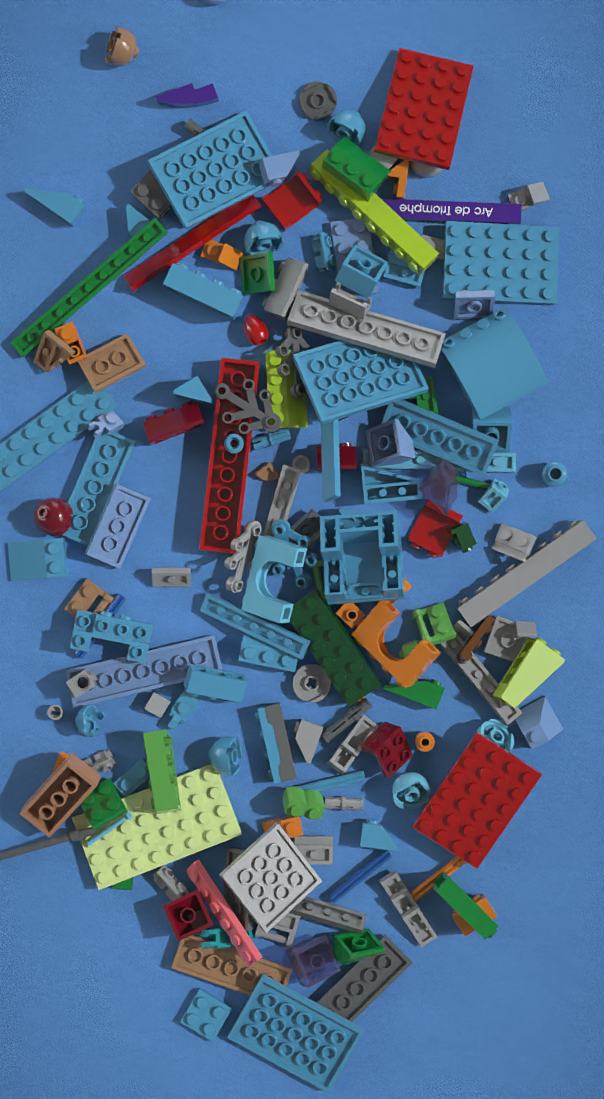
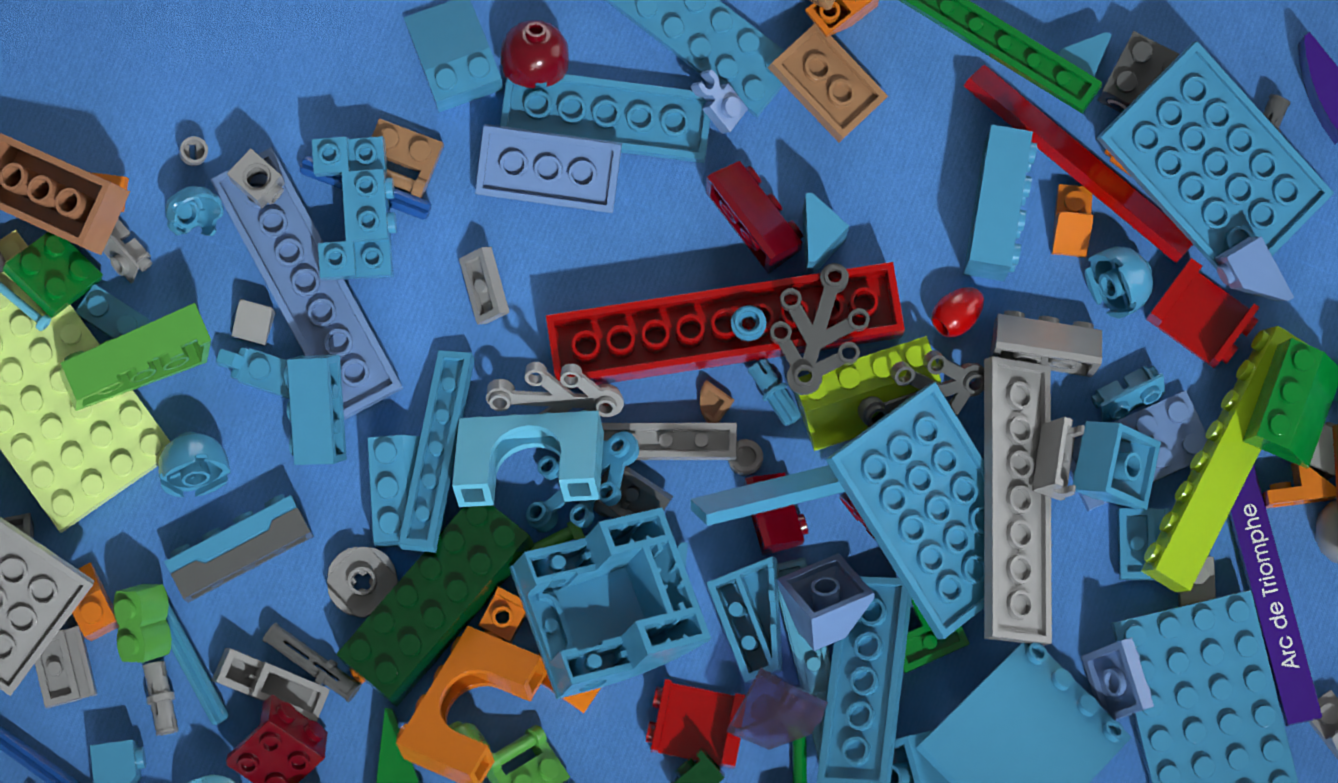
camera: 70 degrees right, 10 degrees down
(257, 273) = (1057, 287): green plate -> none
(307, 737) = (261, 600): light grey slope -> none

